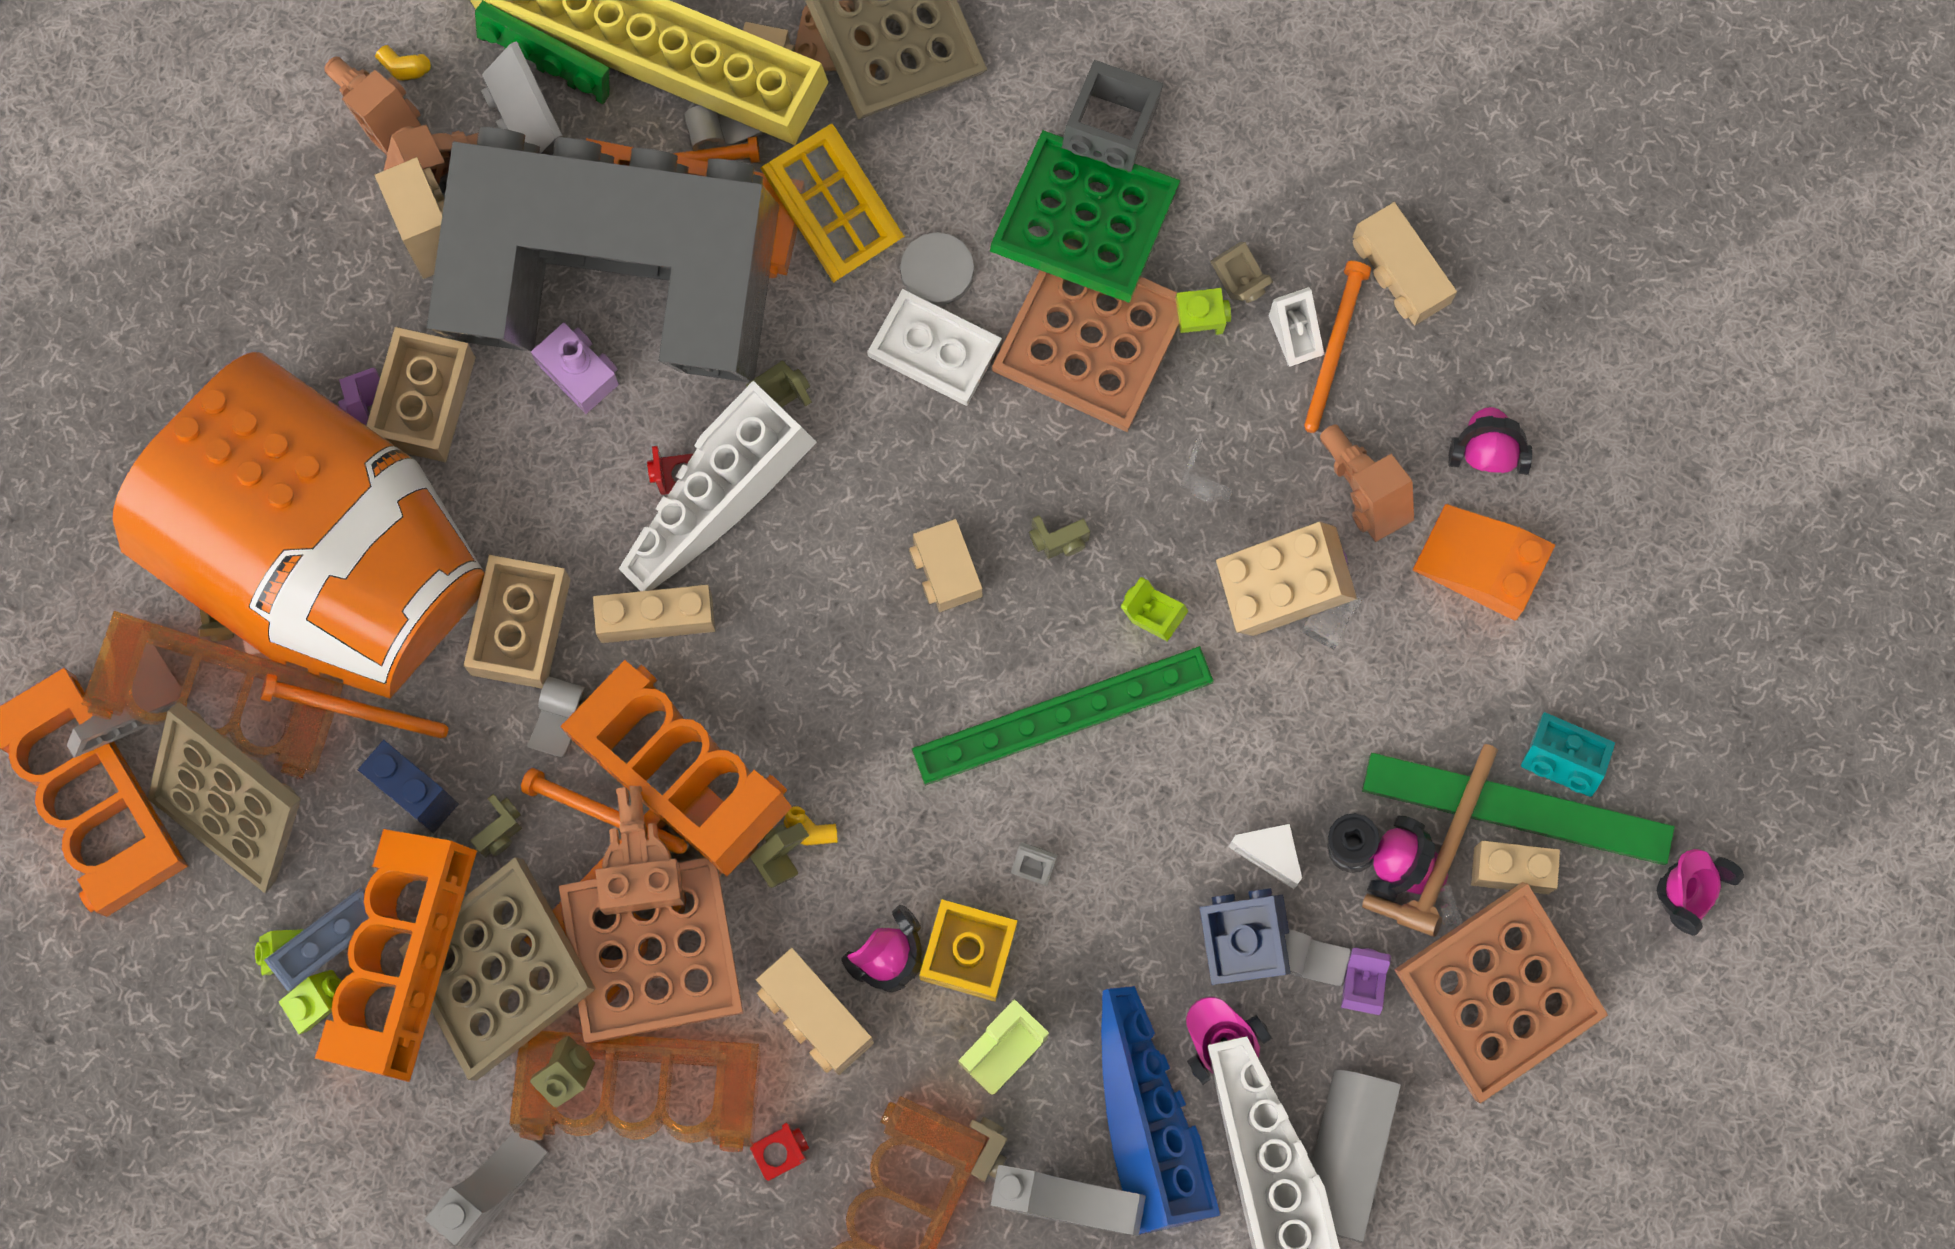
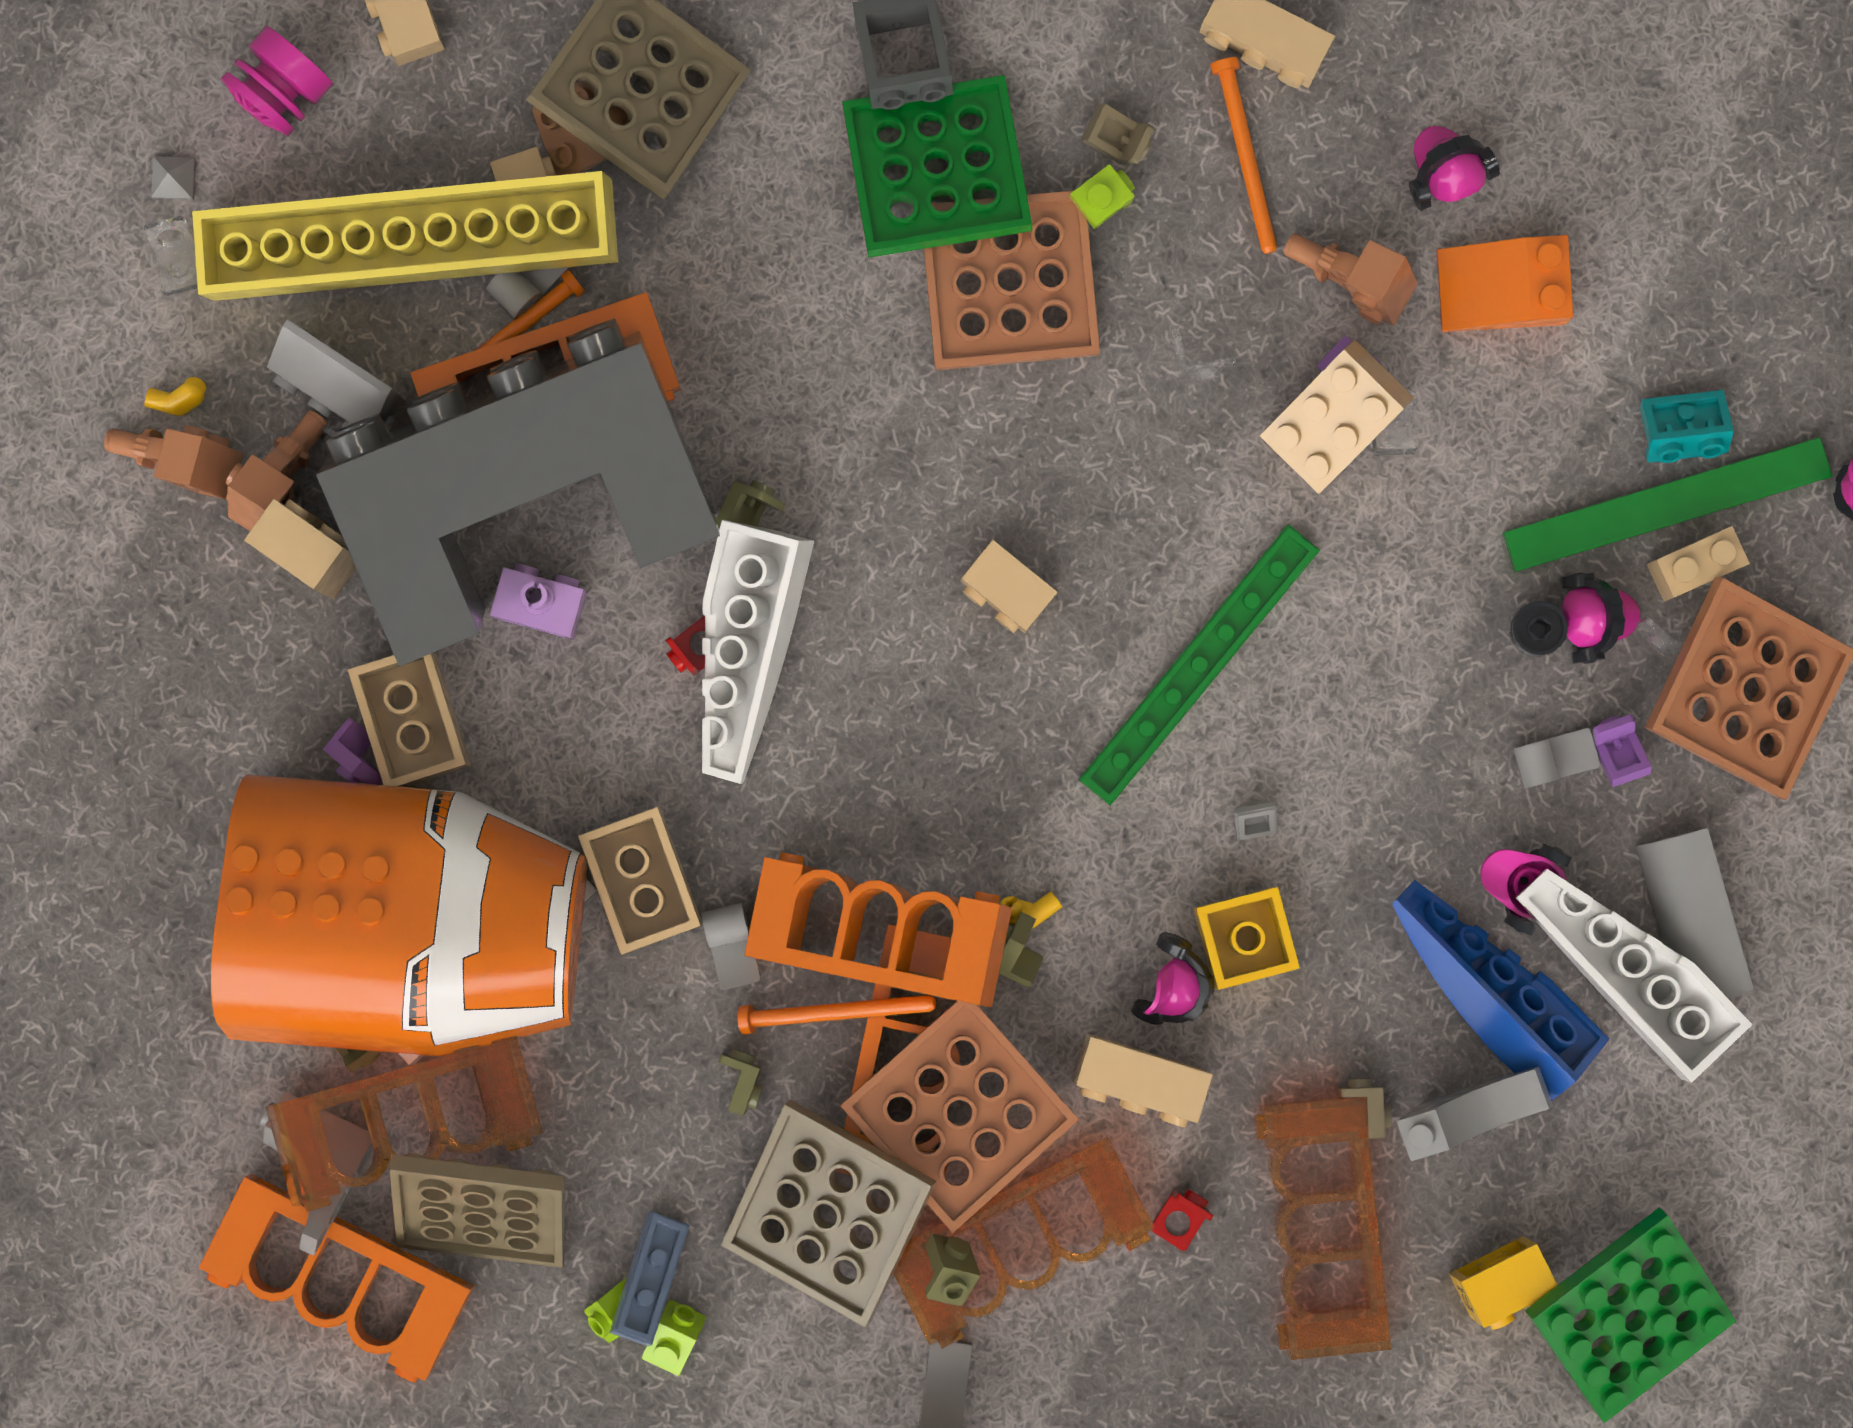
camera: 35 degrees left, 10 degrees up
(272, 688) = (458, 1083): orange bar -> none
(399, 861) = (729, 1355): orange fence -> none
(408, 786) = (640, 1096): dark blue brick -> none
(544, 51) = (314, 307): green hinge -> none
(638, 870) = (909, 1050): nougat brick -> none
(654, 614) = (762, 796): tan brick -> none
(832, 202) = (686, 296): yellow piece -> none
(934, 347) = (868, 380): white plate -> none
(937, 268) = (822, 300): light grey tile -> none
(1003, 1047) = (1327, 1007): yellowish green panel -> none
(1067, 539) = (1107, 495): olive bracket -> none
(1153, 609) = (1226, 515): lime bracket -> none
(1246, 937) = (1491, 775): plate -> none
(1272, 851) = (1467, 679): white slope -> none
(1297, 326) = (1202, 159): white slope -> none
(1423, 915) = (1638, 658): medium nougat bar -> none

